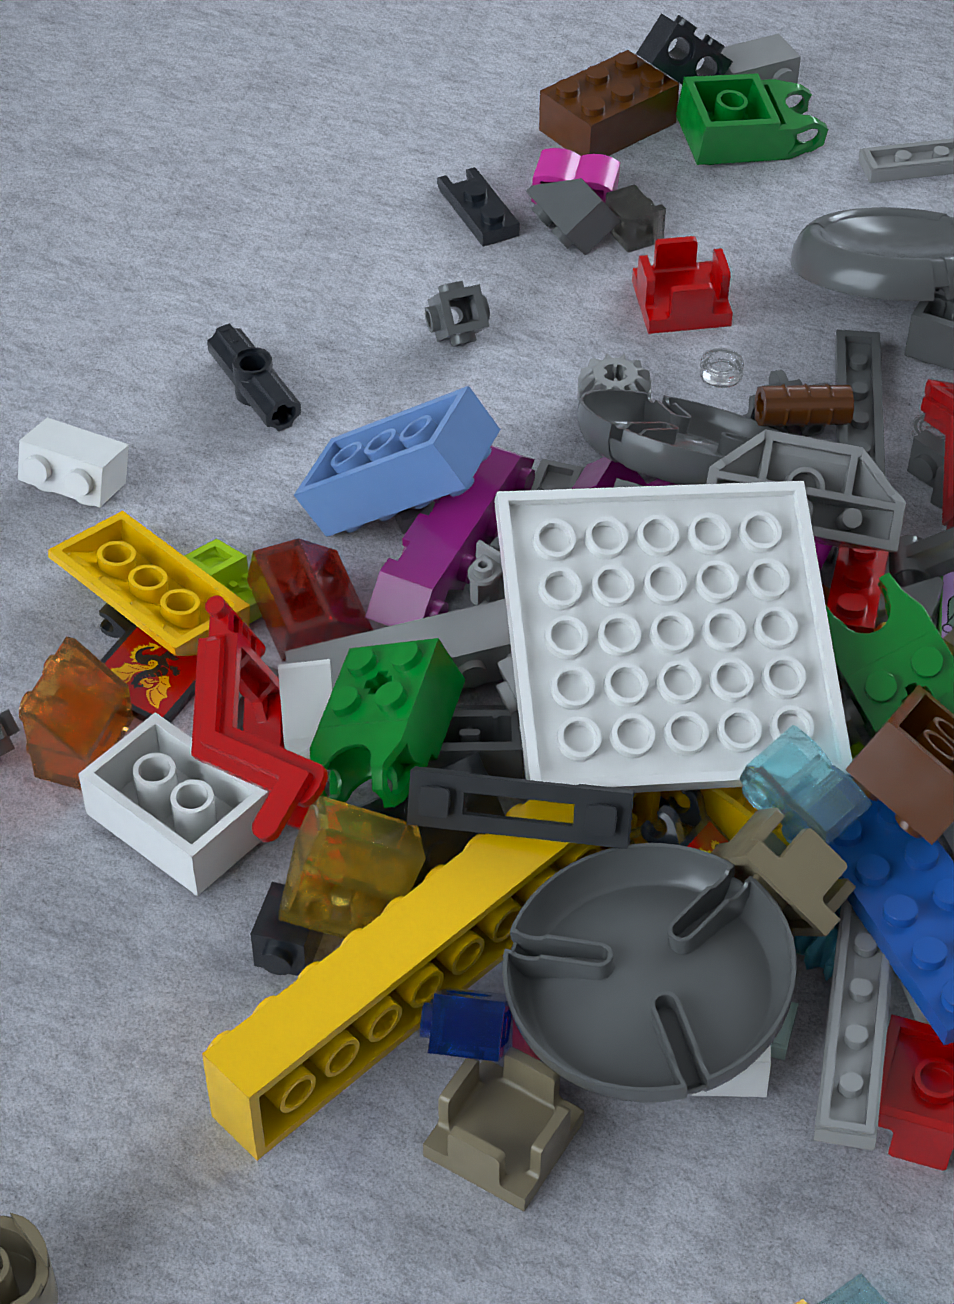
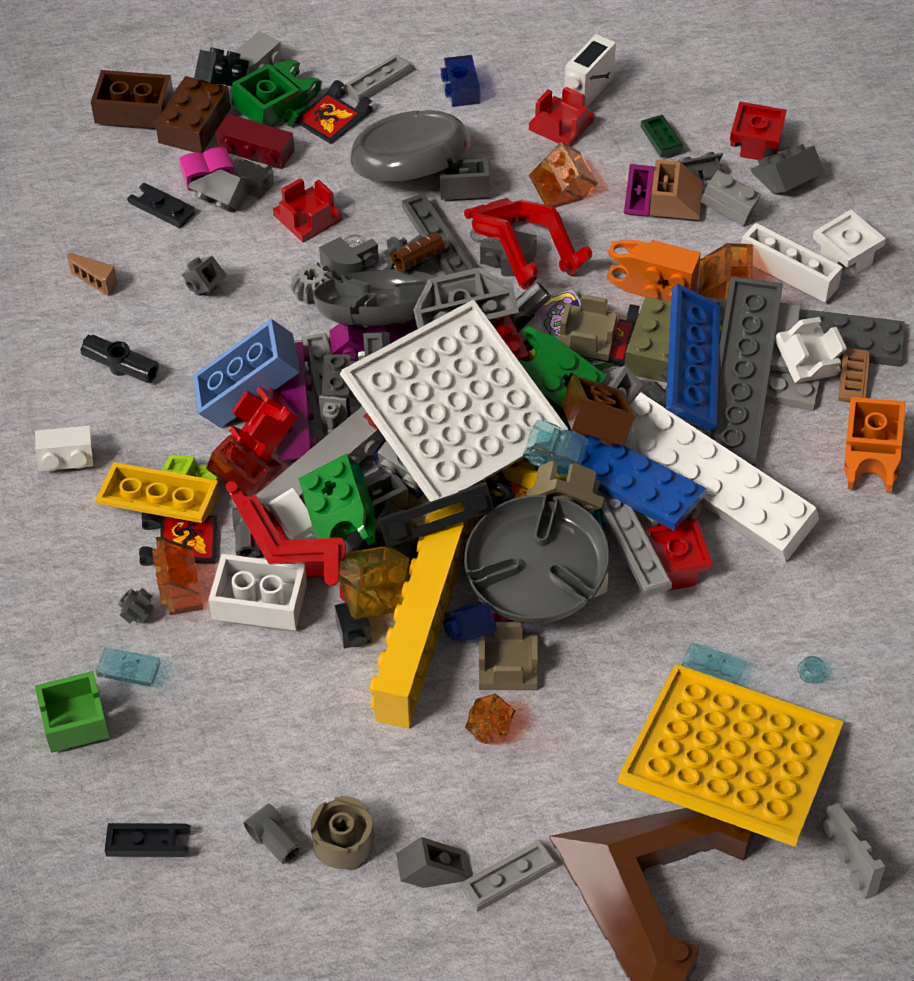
camera: 30 degrees left, 5 degrees up
(312, 252) = (93, 272): none -> medium nougat slope
(379, 539) = (265, 419): none -> red panel
(388, 1219) = (490, 719): none -> clear orange brick
(530, 51) = (130, 98): none -> reddish brown brick
(673, 172) = (255, 141): none -> dark red brick
(684, 374) = (344, 260): none -> dark grey brick
(753, 158) = (291, 115): none -> green hand
(820, 181) = (331, 116): none -> flag

